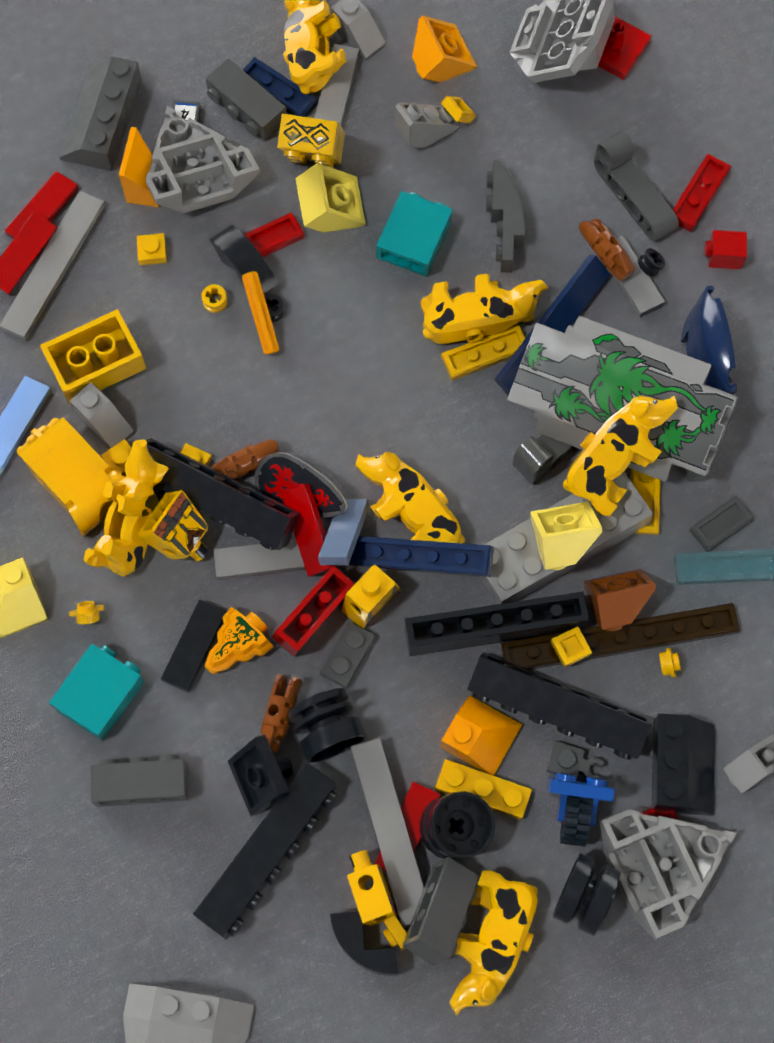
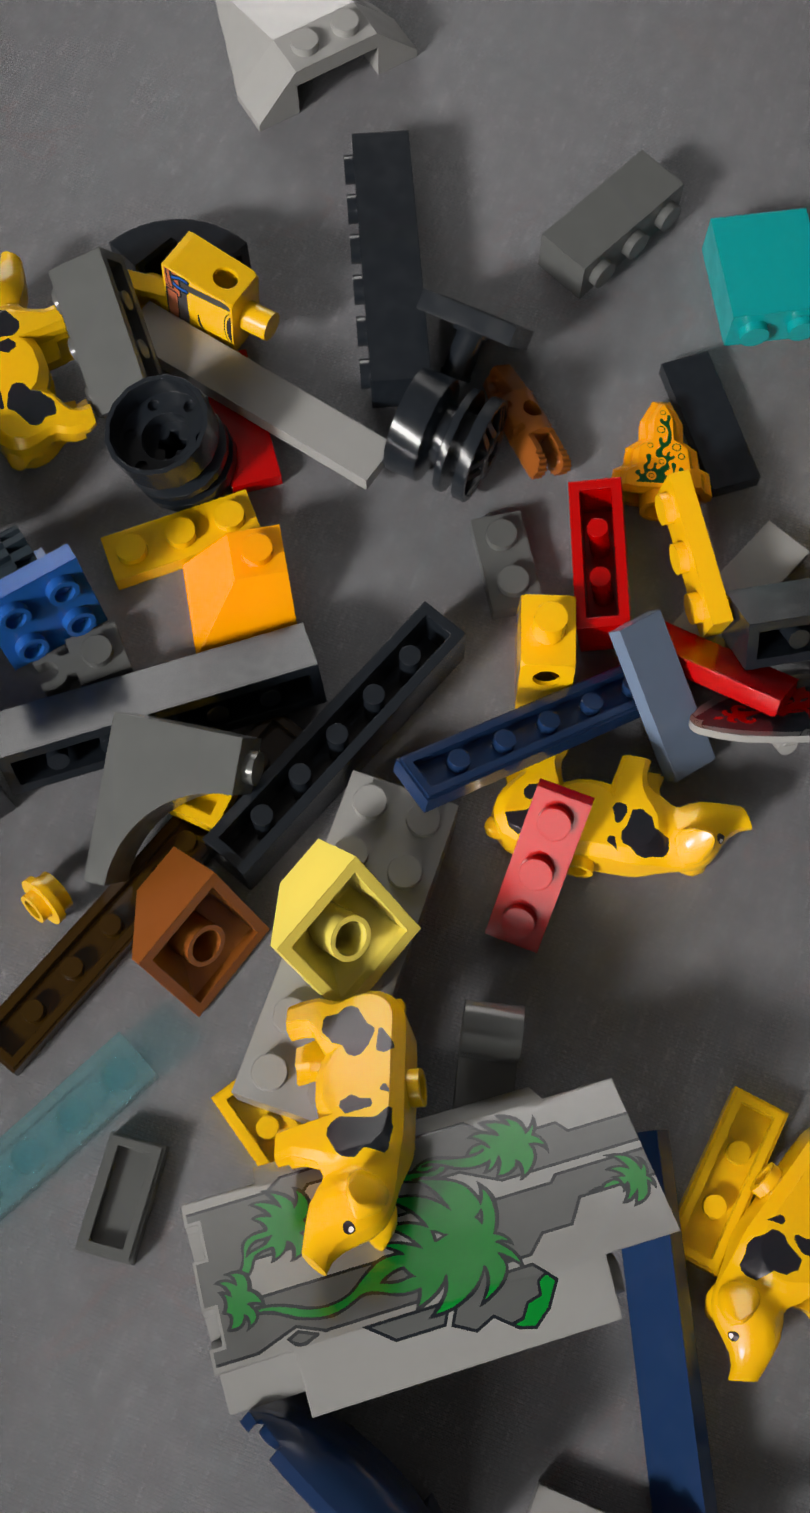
camera: 140 degrees right, 0 degrees up
(274, 578) = (693, 555): none -> yellow plate
(458, 504) = (539, 865): none -> plate
(581, 655) = (153, 770): none -> dark grey arch

